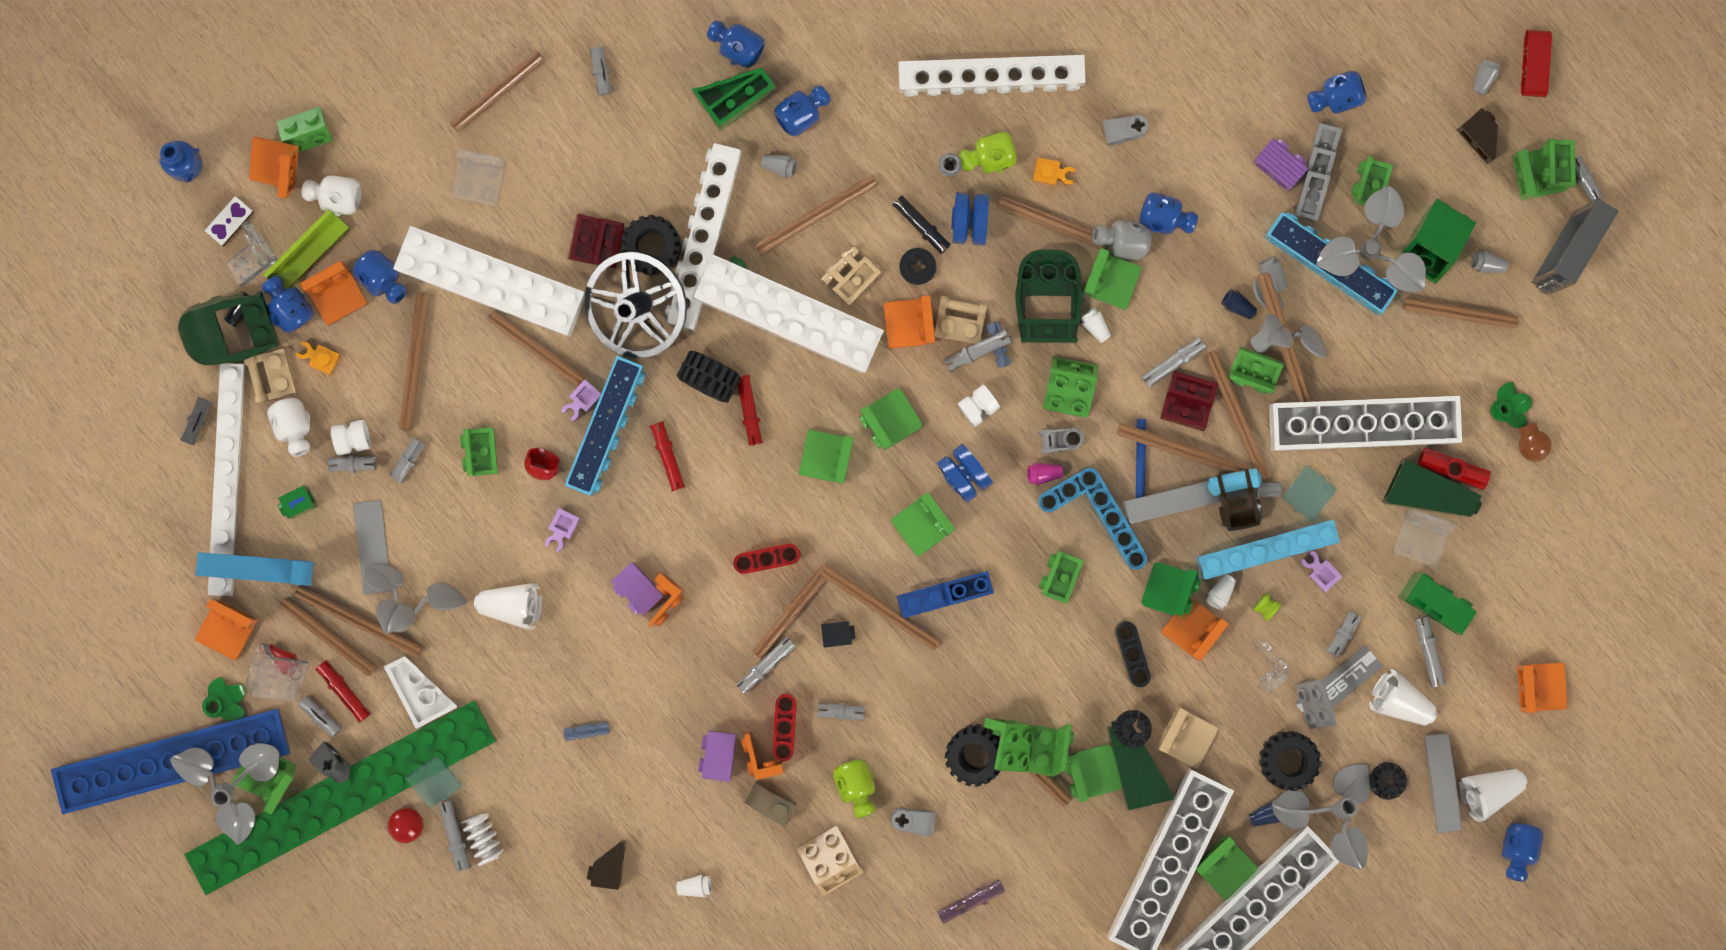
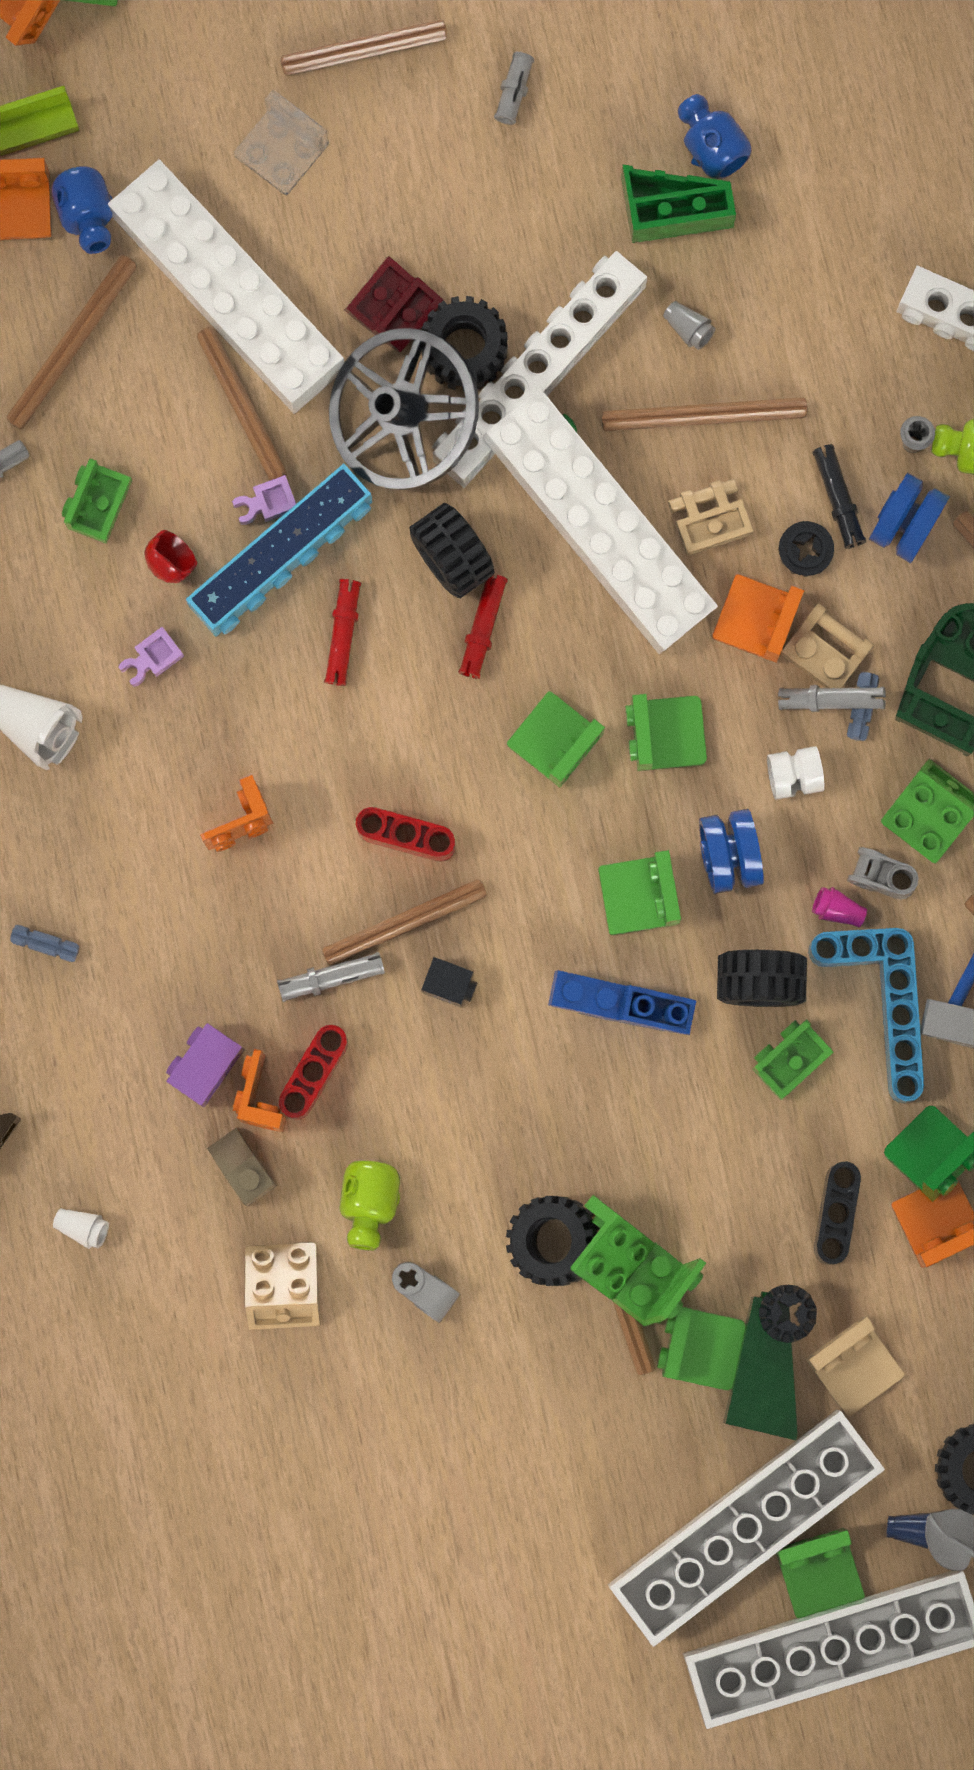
camera: 30 degrees right, 5 degrees down
(335, 193) = (83, 70): white piece -> none
(637, 589) = (211, 787): medium lavender brick -> none
(801, 111) = (753, 266): blue piece -> none
(840, 711) = (400, 1090): light grey pin -> none
(880, 607) = (525, 976): medium nougat axle -> none
(971, 901) = (447, 1440): pin -> none
(1020, 540) = (762, 978): none -> black tyre

